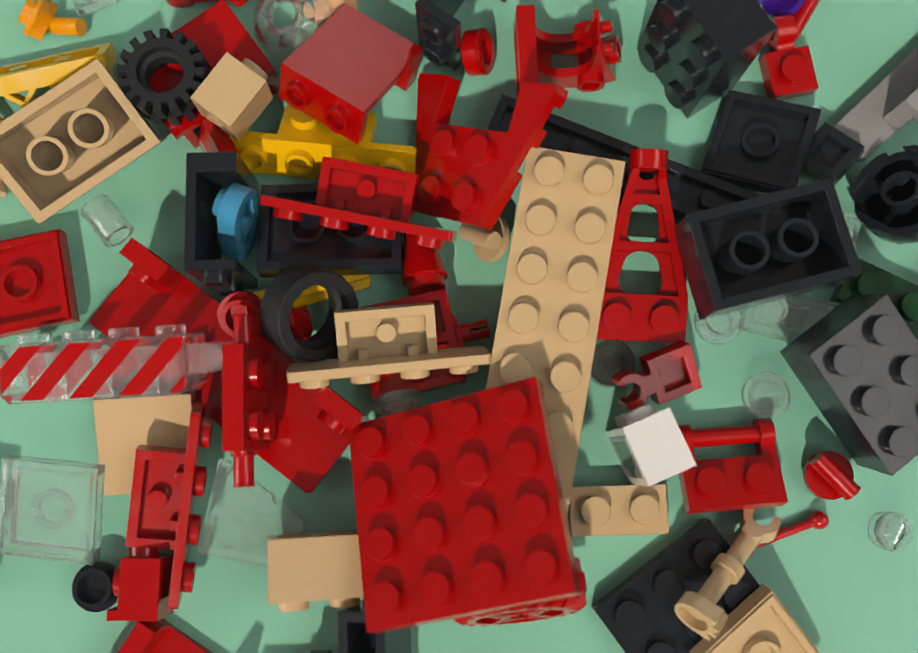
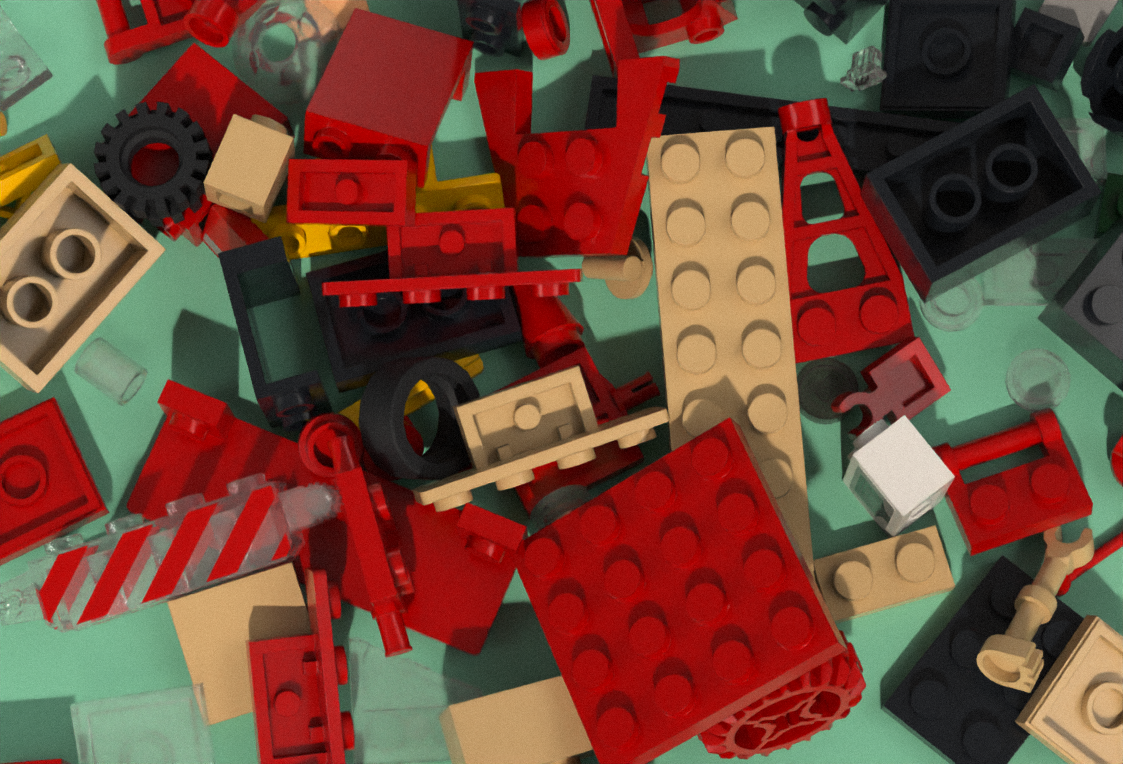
camera: 10 degrees left, 5 degrees down
(237, 220) = (293, 330): dark azure plate -> none
(301, 133) = (351, 192): none -> red plate
(697, 139) = (864, 70): none -> clear piece

